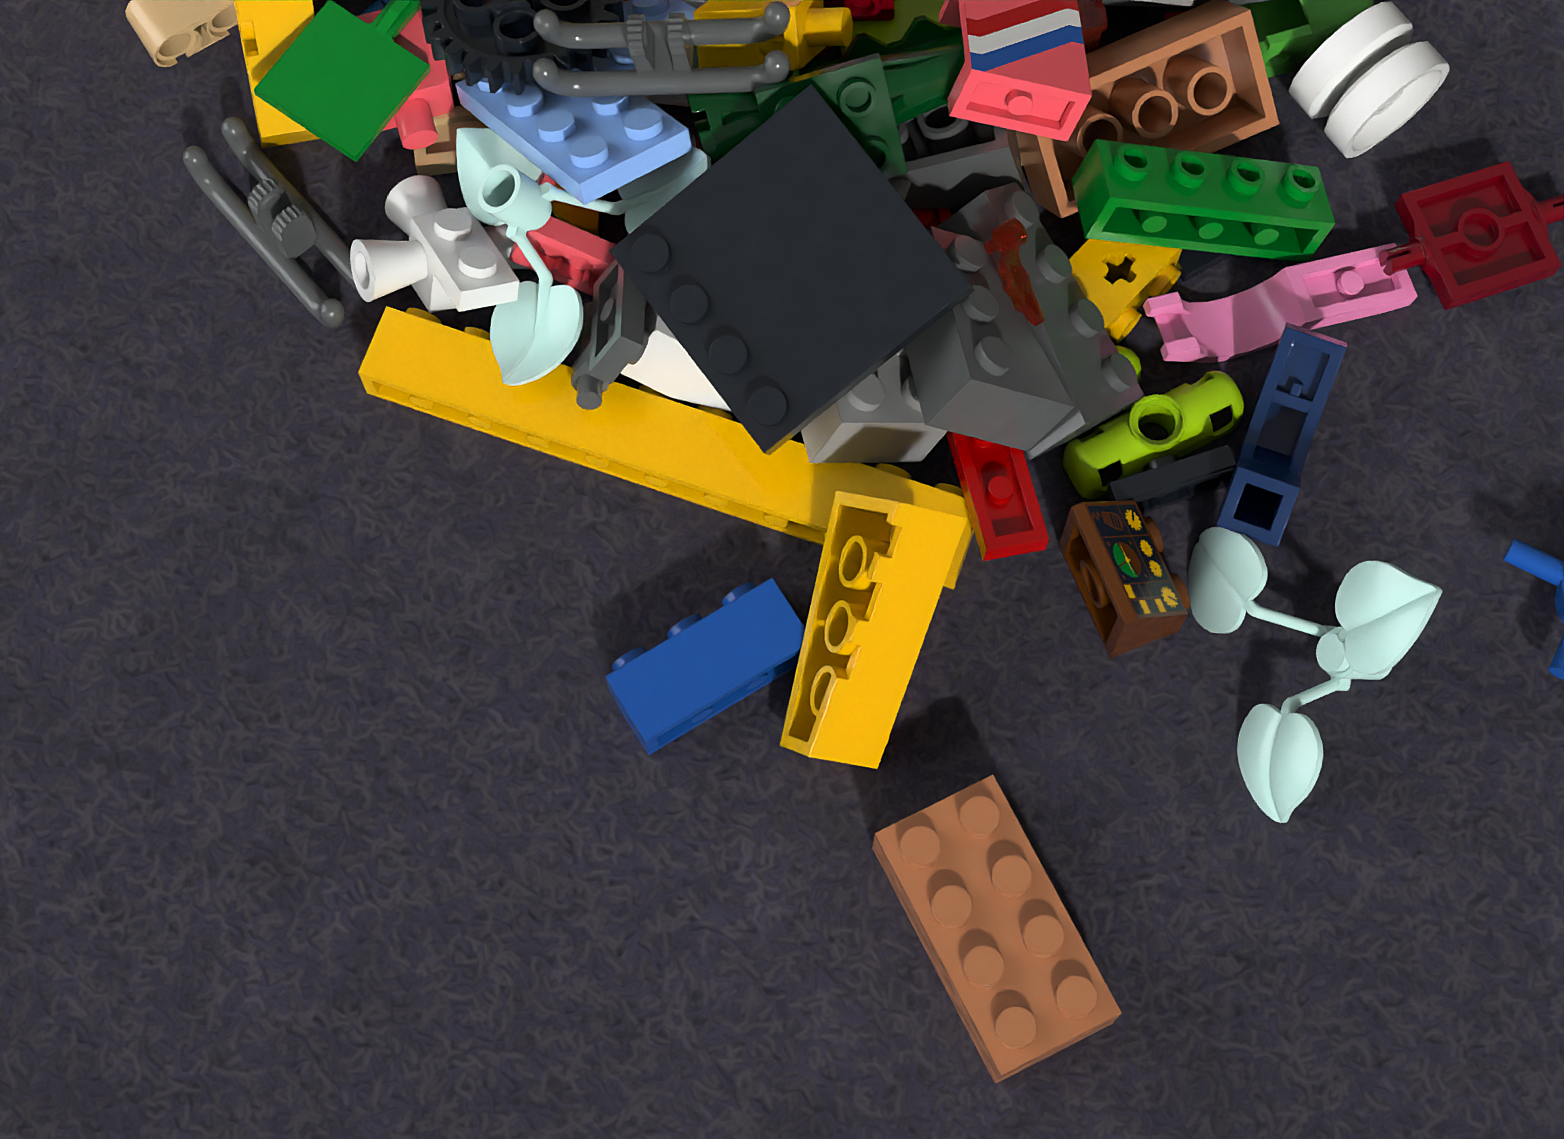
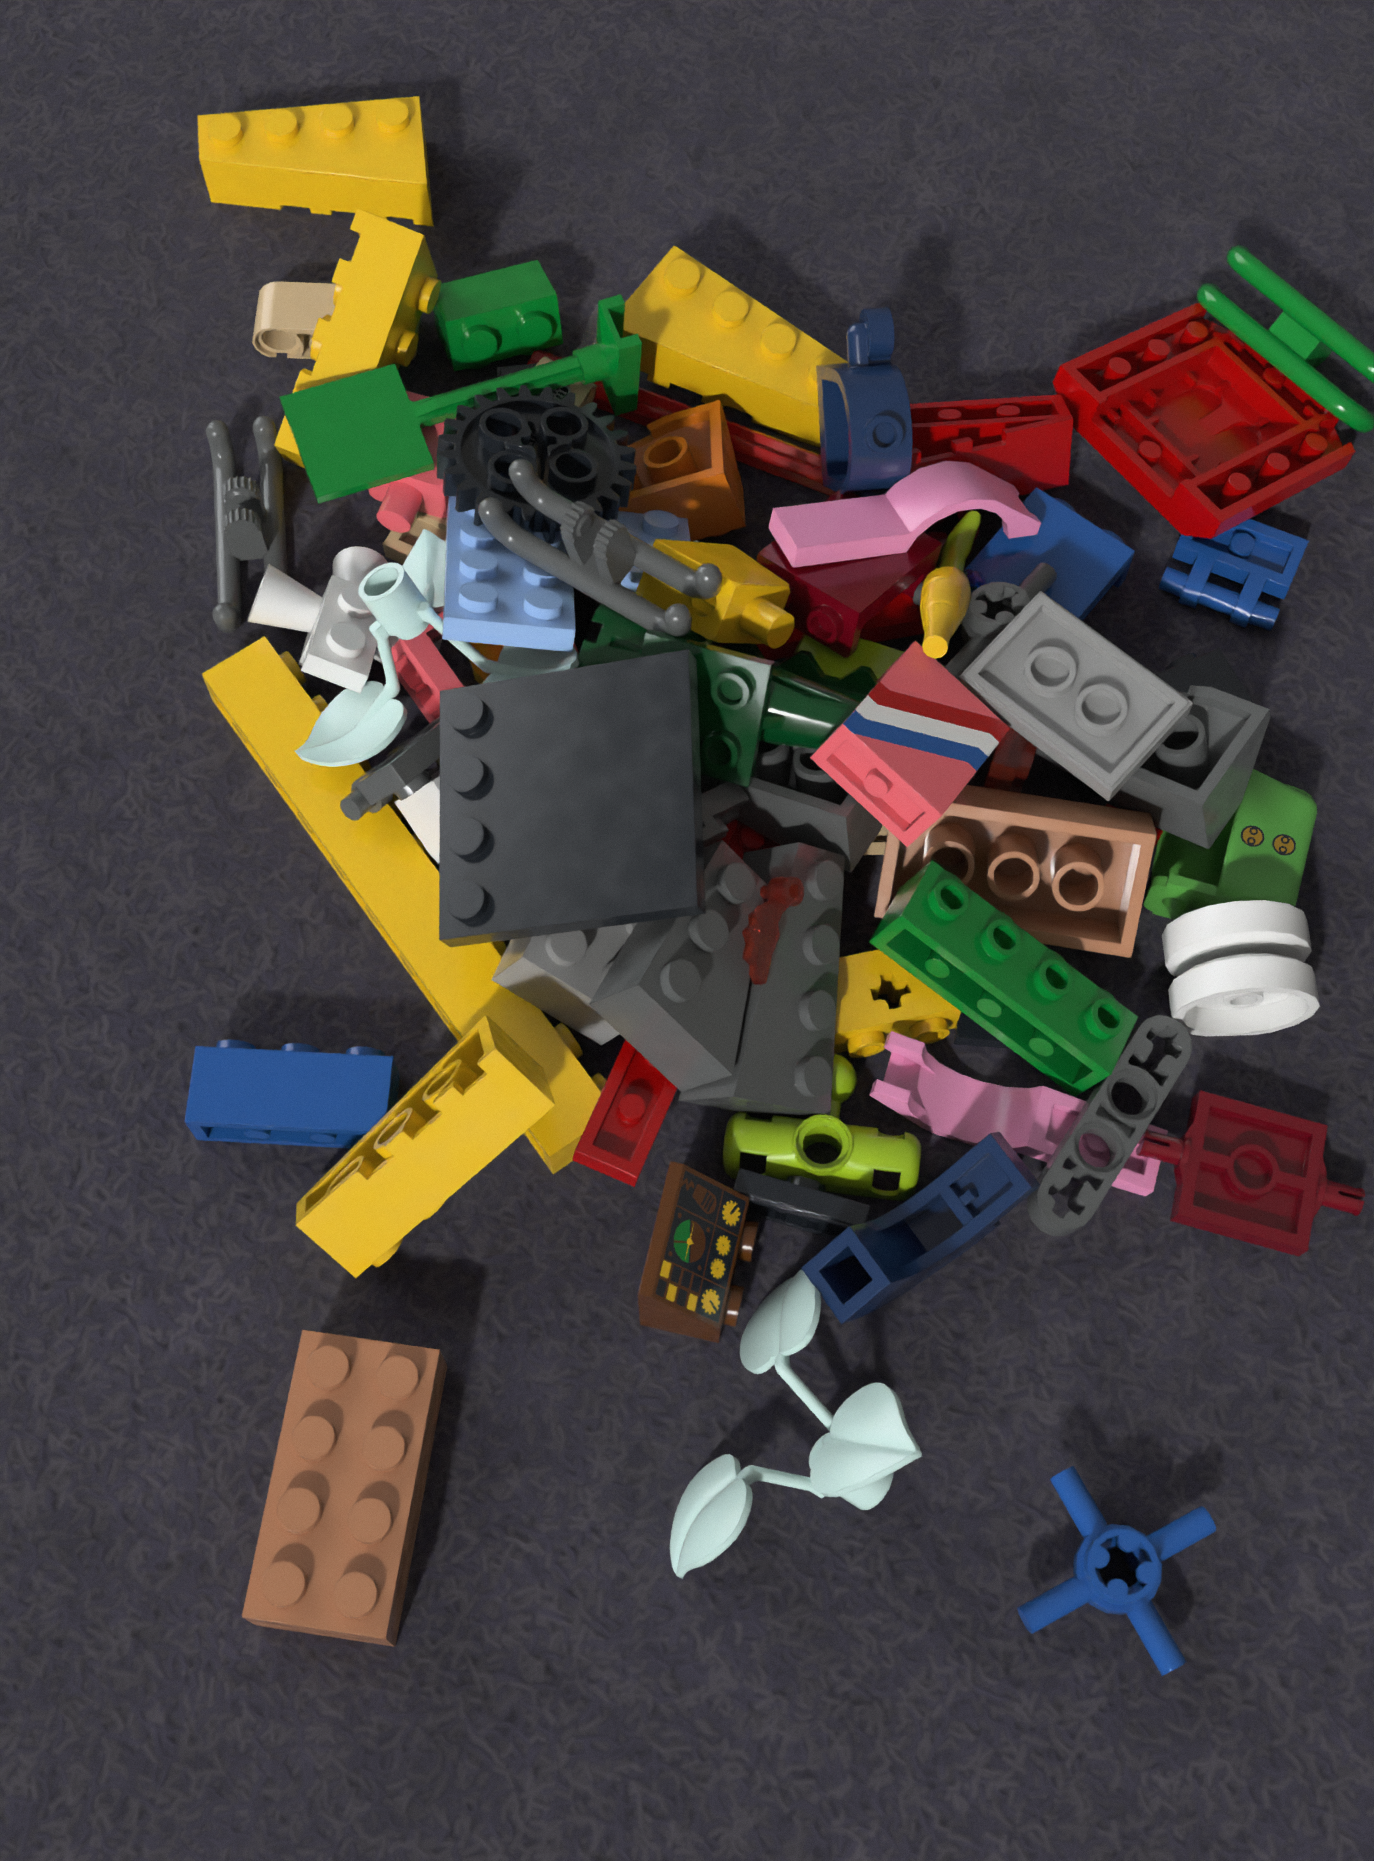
camera: 35 degrees right, 5 degrees down
(1362, 264) = (1116, 1128): none -> dark grey beam

